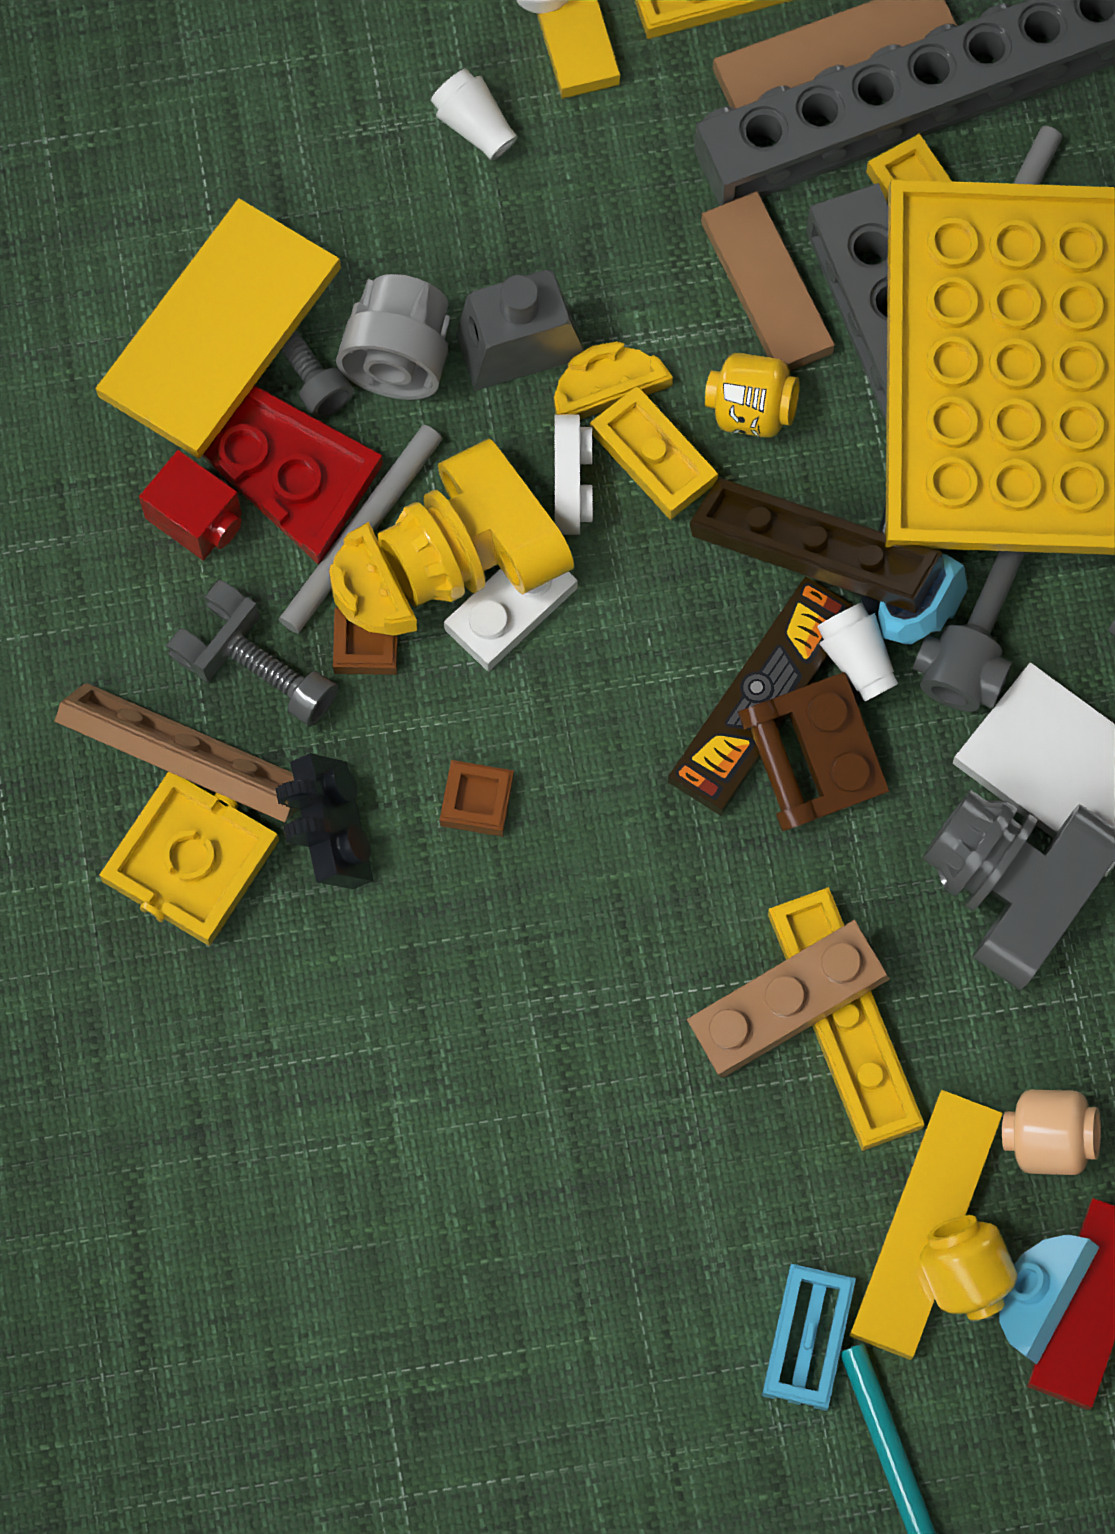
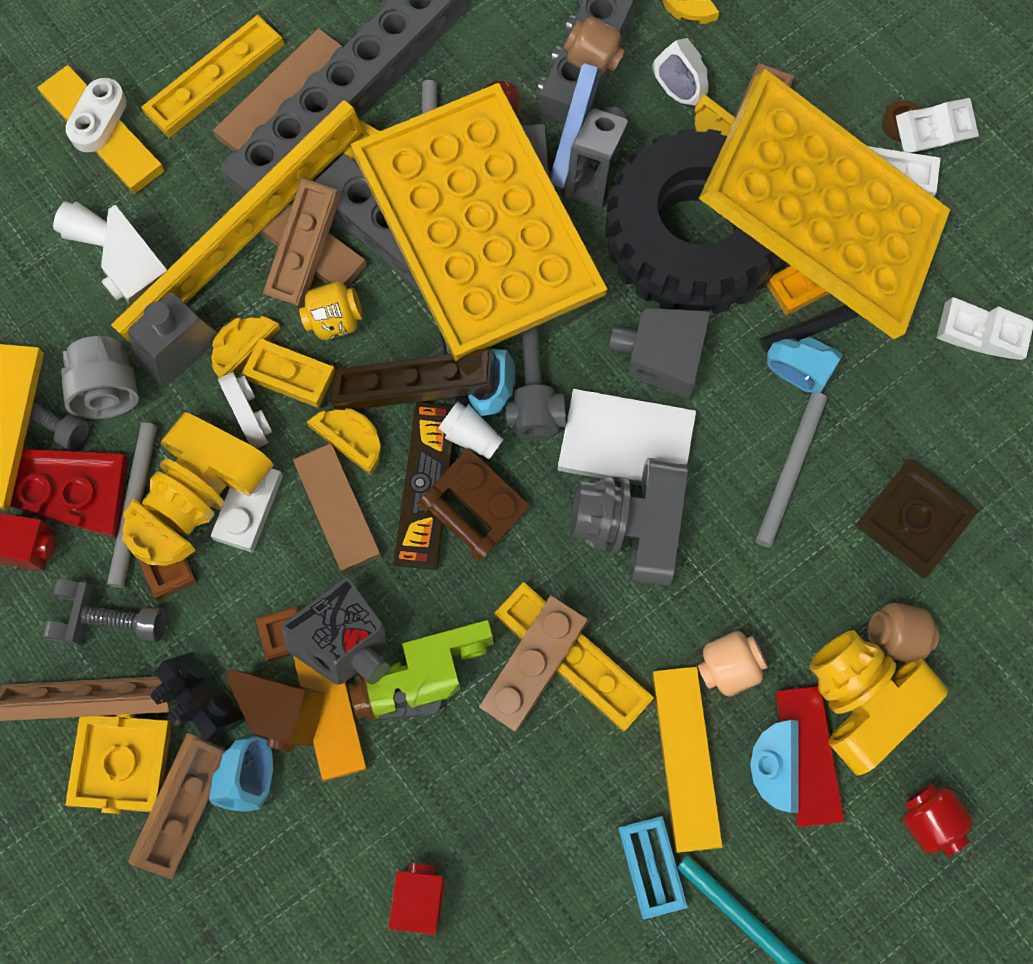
camera: 25 degrees left, 0 degrees up
(241, 949) = (177, 808): none -> medium nougat tile
(340, 952) = (243, 775): none -> medium azure rock
(425, 888) = (277, 708): none -> reddish brown slope
(485, 1219) = (417, 900): none -> red brick
(489, 927) = (336, 734): none -> light orange tile
(512, 194) = (127, 259): none -> white slope
(549, 834) = (338, 636): none -> dark grey torso
(628, 667) = (336, 508): none -> medium nougat tile
(632, 949) = (425, 680): none -> lime plate
(695, 577) = (351, 435): none -> yellow plate
(706, 207) = (250, 213): none -> yellow tile
(759, 281) = (302, 242): none -> medium nougat tile
(968, 1267) = (728, 775): yellow head -> none

